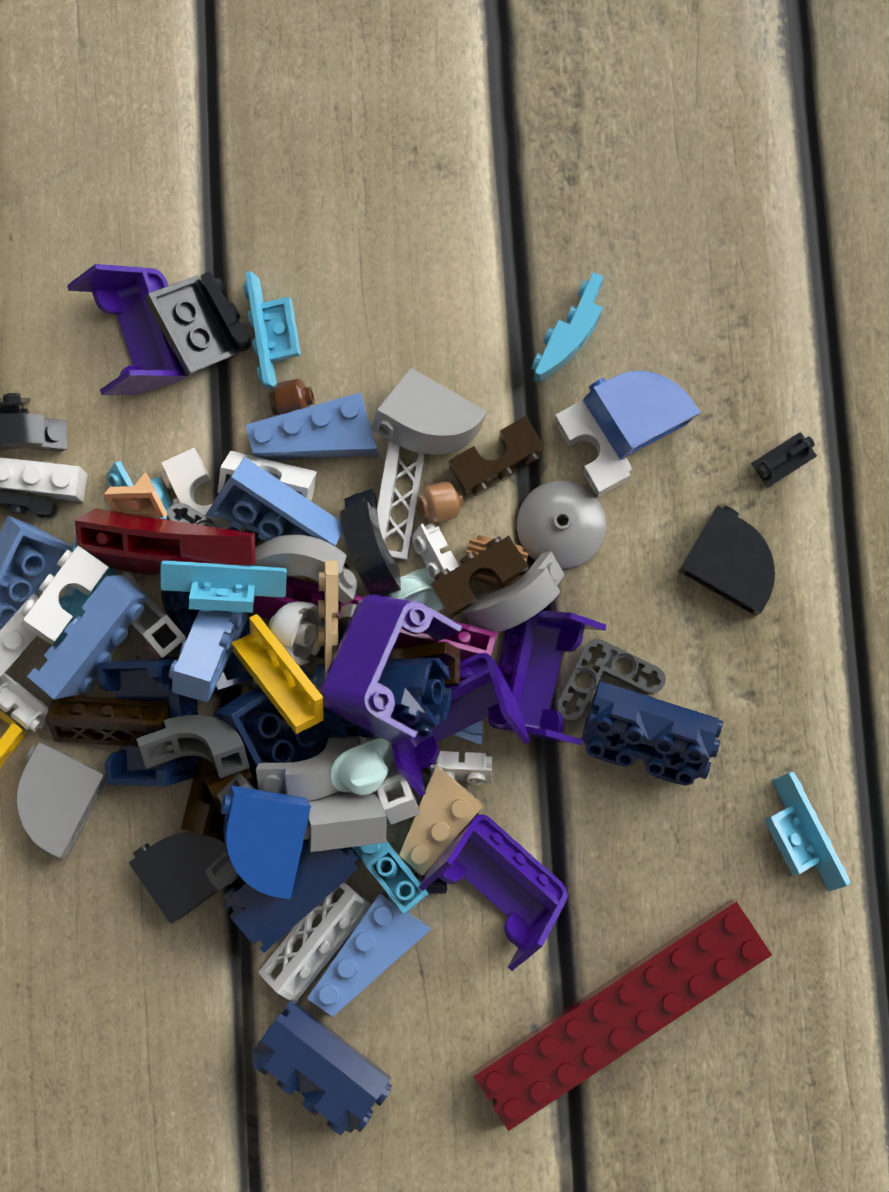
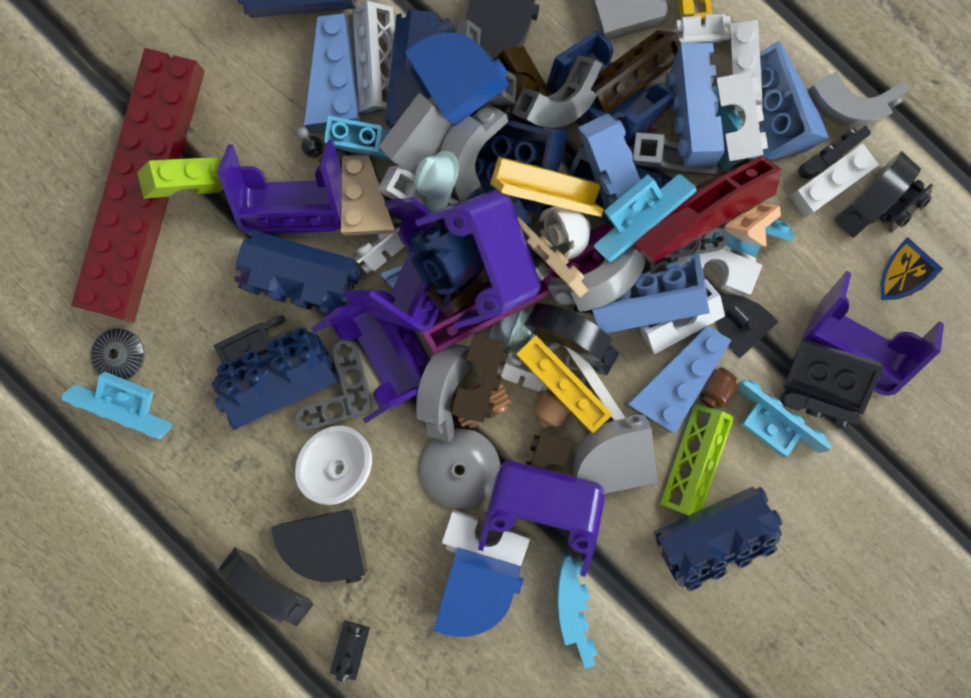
camera: 135 degrees right, 5 degrees up
(51, 353) = (908, 271): none -> shield
(218, 433) = (744, 322): none -> black shield
(358, 349) = (705, 461): none -> lime fence
(401, 282) = (719, 536): none -> dark blue brick
(413, 511) = (564, 384): none -> yellow fence
(438, 914) = (310, 143): none -> black hinge
(515, 432) = (548, 500): none -> dark purple windscreen
(551, 806) = (295, 272): none -> dark blue brick
(576, 978) = (166, 177): none -> lime arch
(643, 787) = (254, 338): none -> black hinge
(665, 634) = (325, 456): none -> white dish
(754, 889) = (130, 353): none -> dish
(814, 570) = (261, 590): none -> black arch

